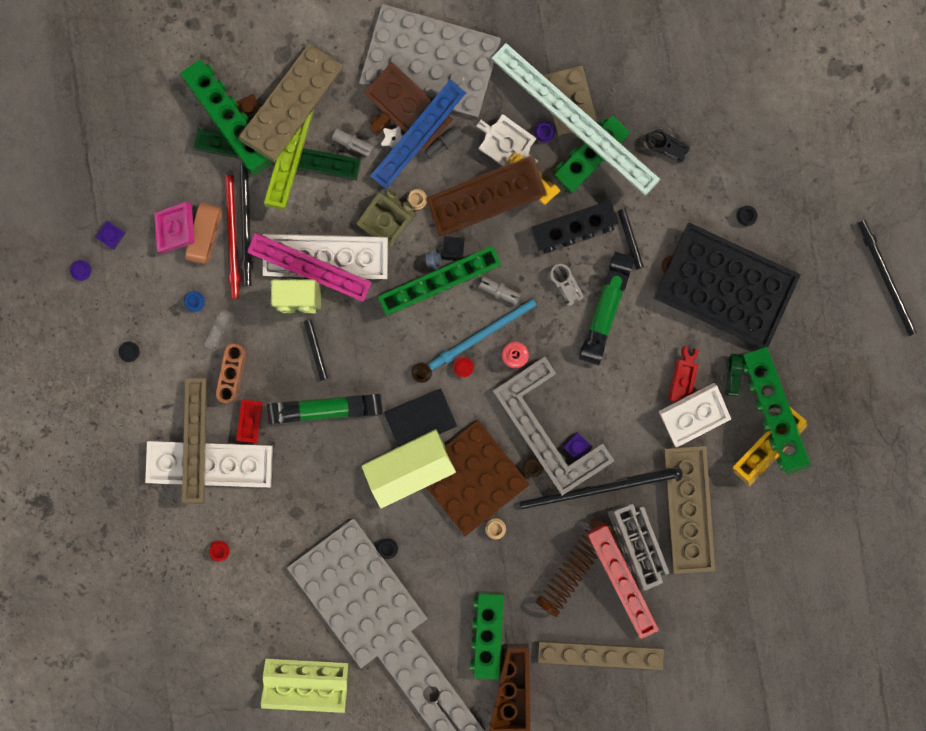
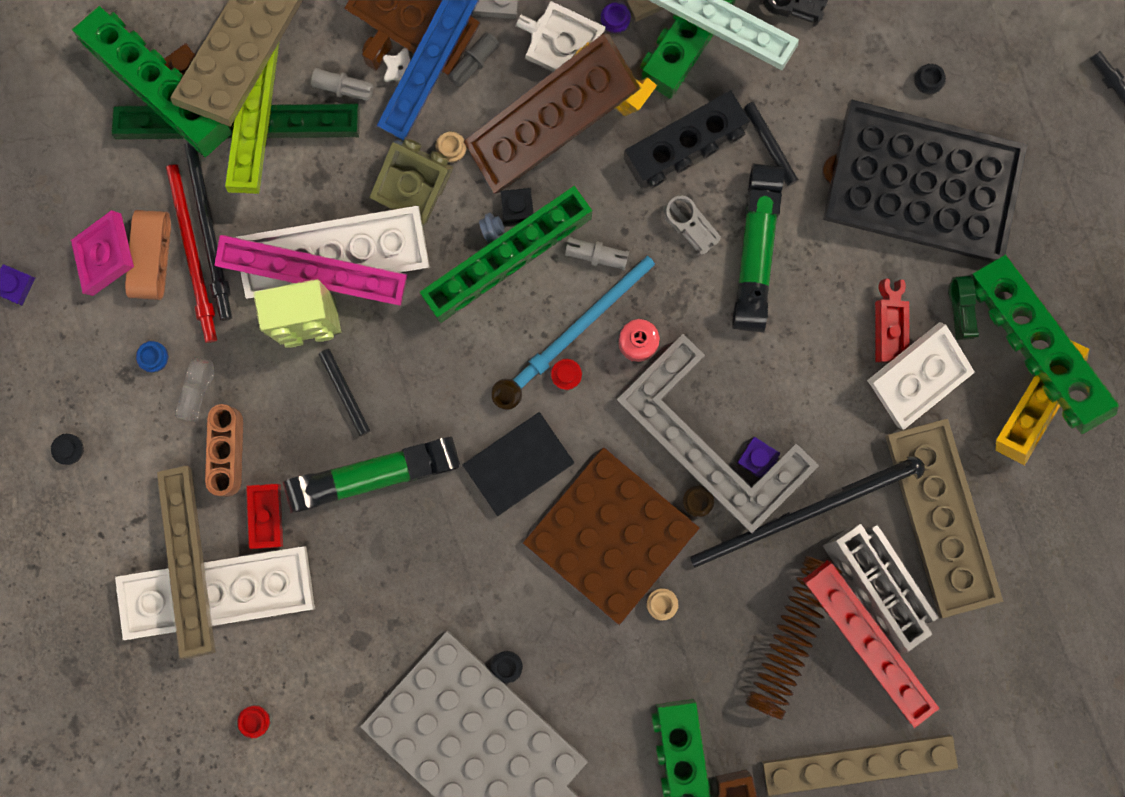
camera: 20 degrees left, 5 degrees down
(408, 468) = (514, 540): yellowish green slope -> none

